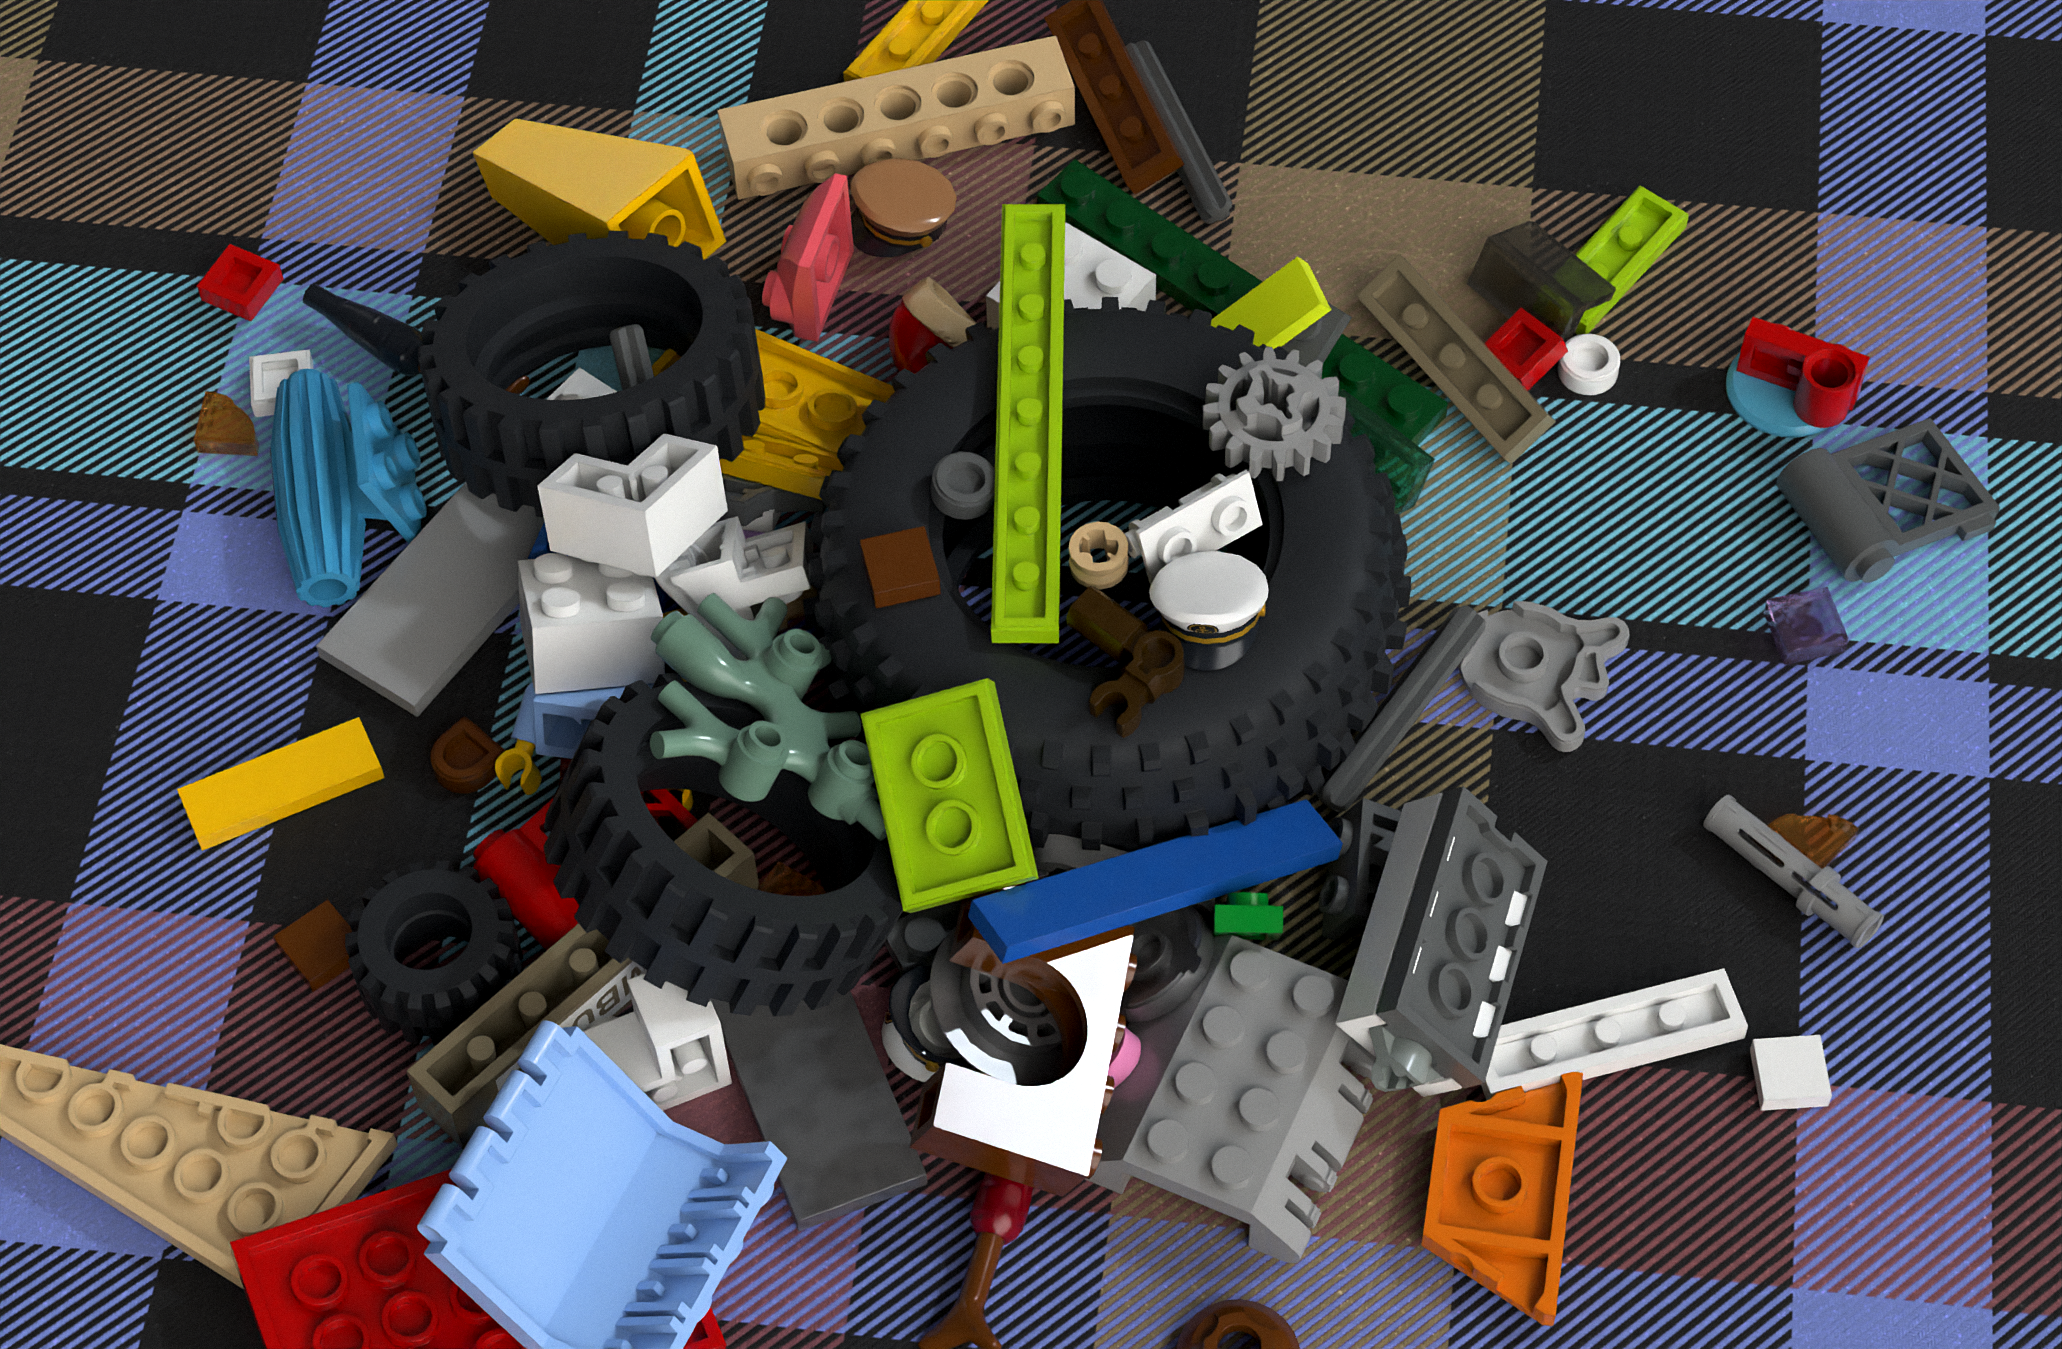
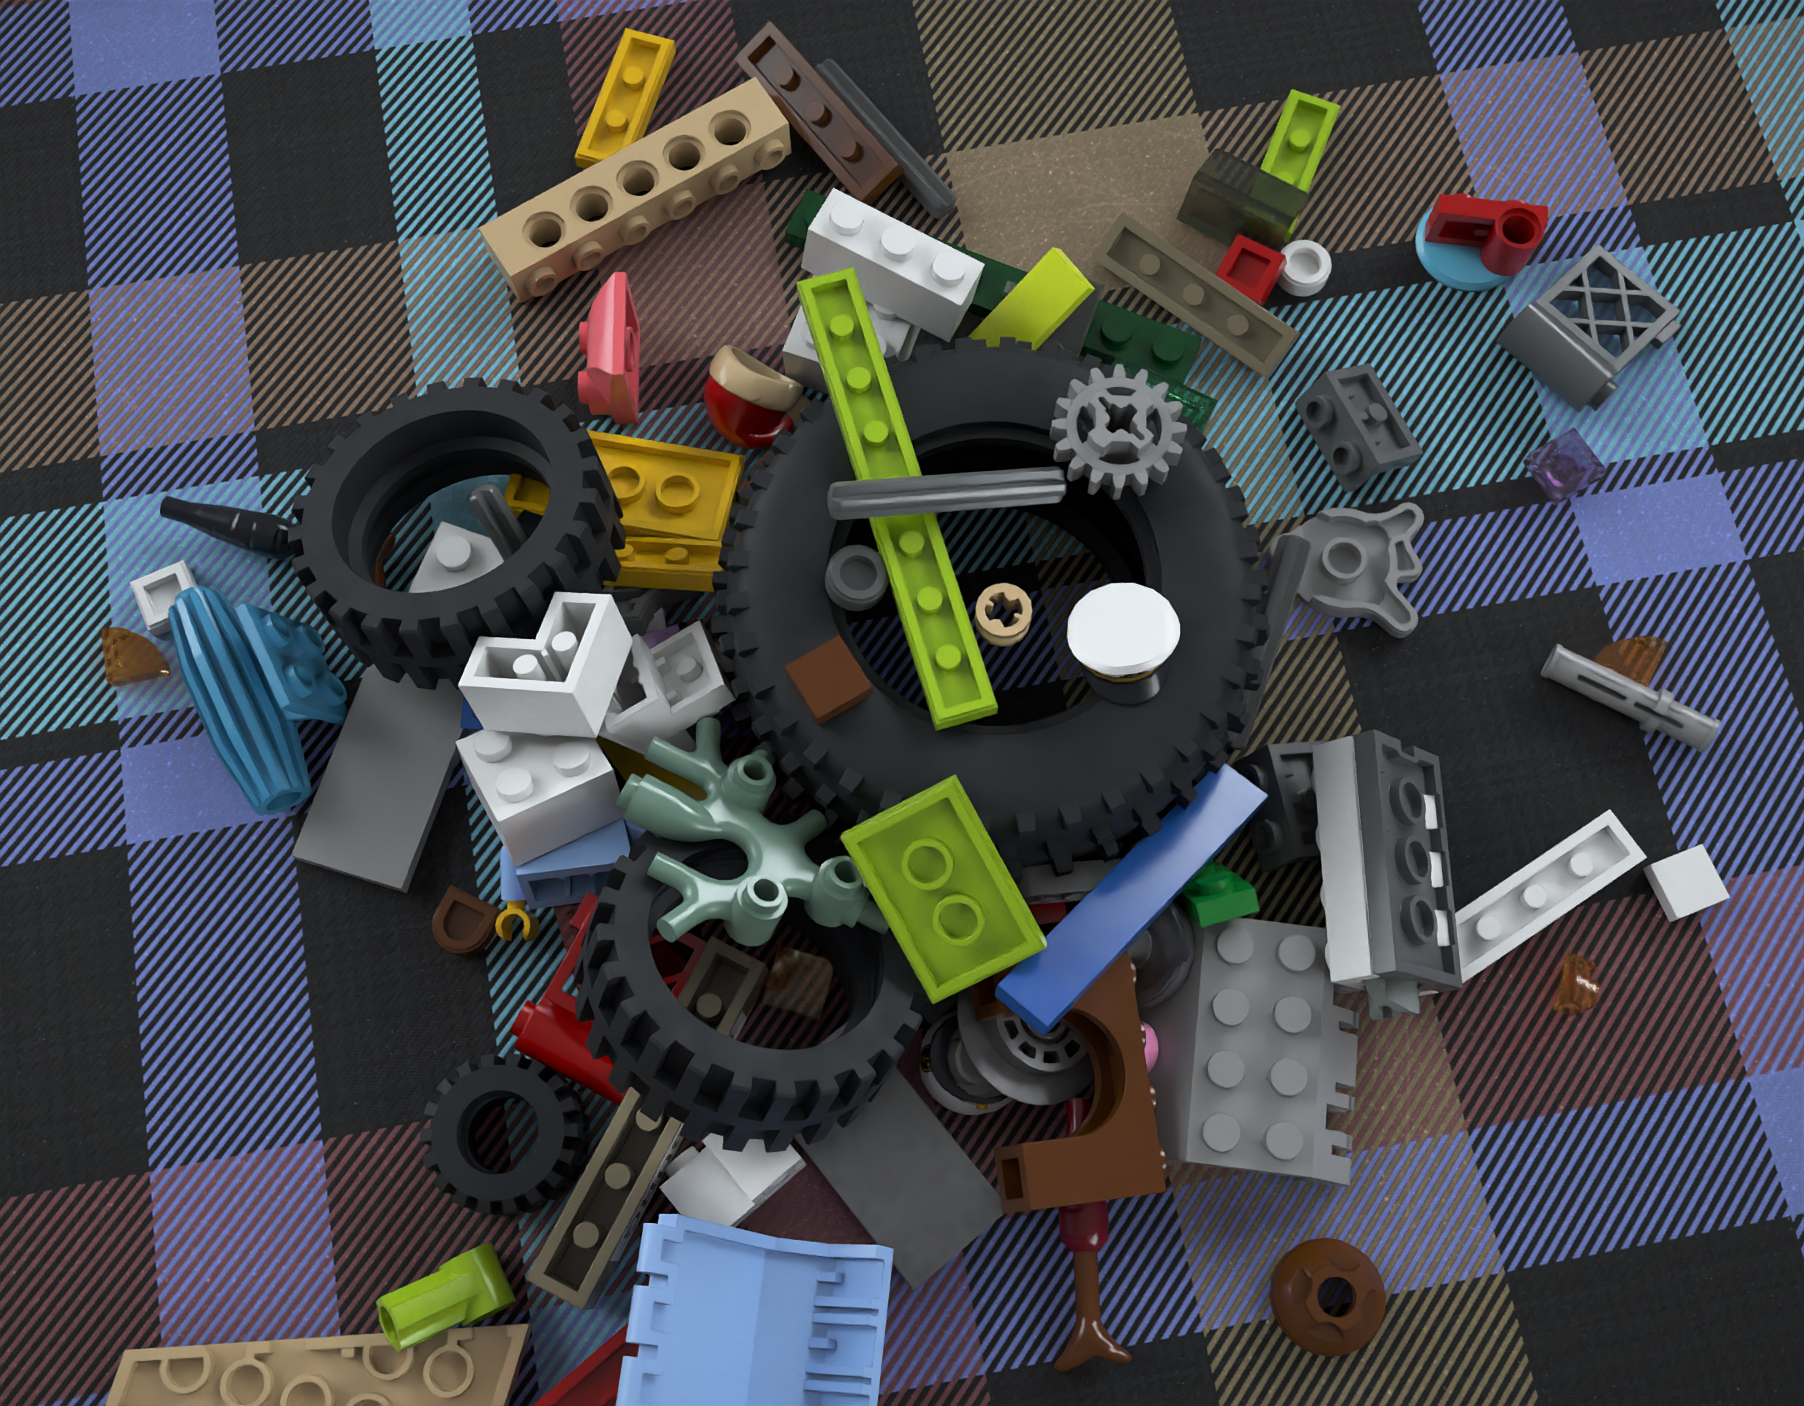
camera: 20 degrees left, 15 degrees up
(240, 282) = (95, 510): red plate -> none
(280, 783) = (303, 999): yellow tile -> none
(316, 945) = (393, 1149): reddish brown tile -> none
(337, 1084) = (461, 1292): none -> lime piece
(598, 183) = (398, 334): yellow slope -> none
(899, 206) = (669, 275): medium nougat piece -> none
(1079, 423) = (945, 492): none -> dark grey axle
(1126, 233) = (893, 264): none -> white brick
(1153, 657) = (1093, 712): dark brown bar -> none
(1201, 523) = (1096, 541): white hinge -> none
(1505, 1191) = (1498, 1069): orange wing -> none
(1588, 527) = (1356, 425): none -> dark grey bracket
(1624, 1136) = (1576, 990): none -> clear orange tile

